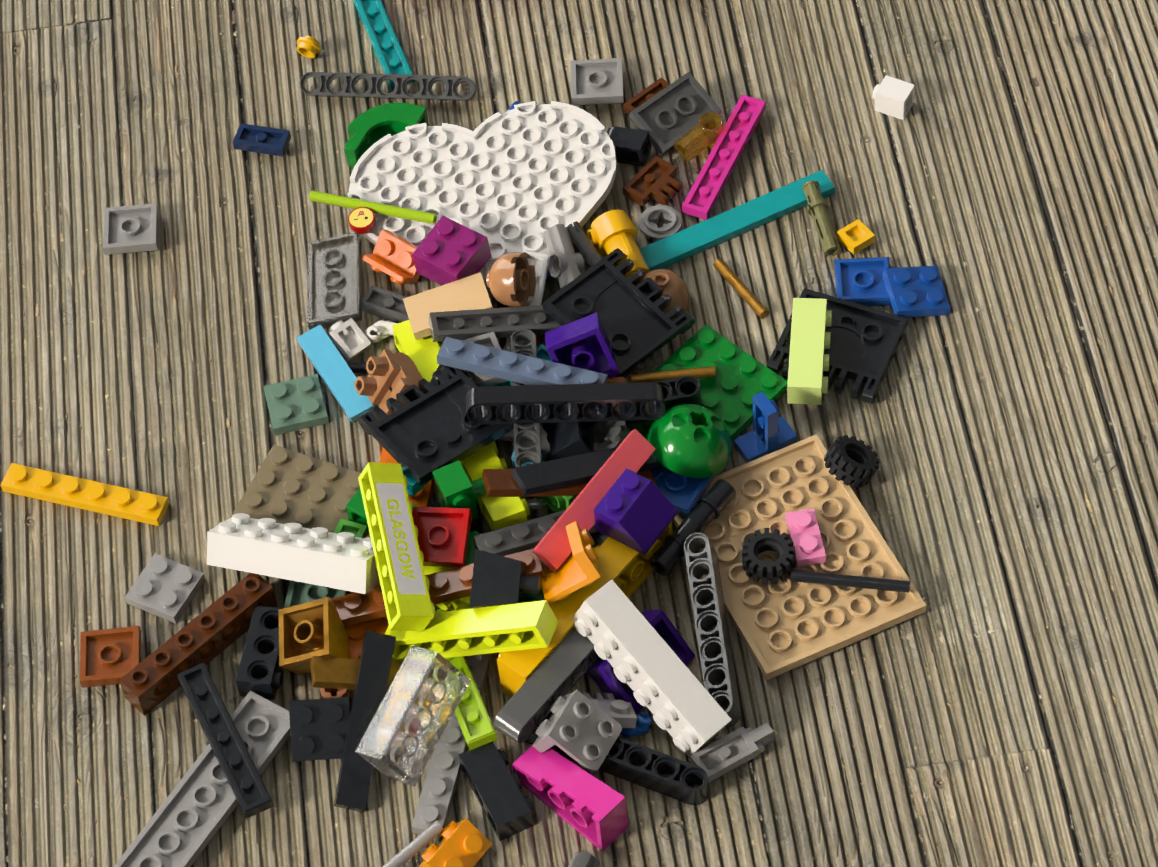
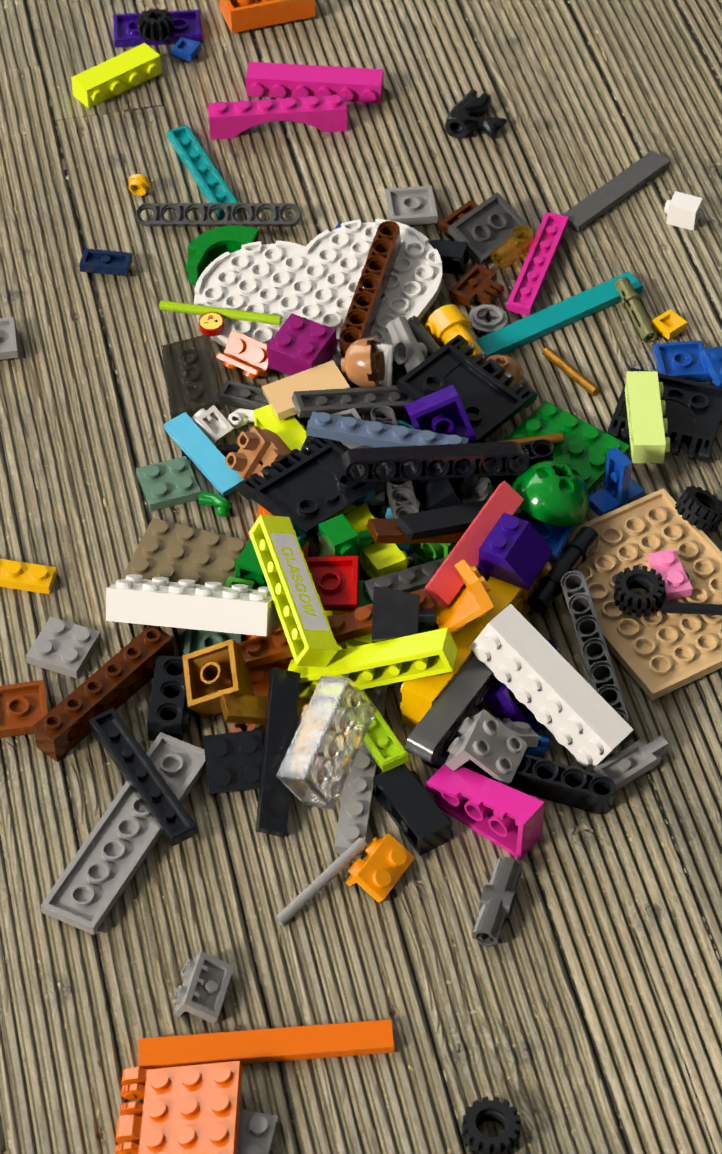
camera: 10 degrees left, 5 degrees down
(344, 427) = (216, 500): none -> green arm
(534, 184) = (371, 285): none -> reddish brown beam
(824, 68) = (616, 190): none -> dark grey tile

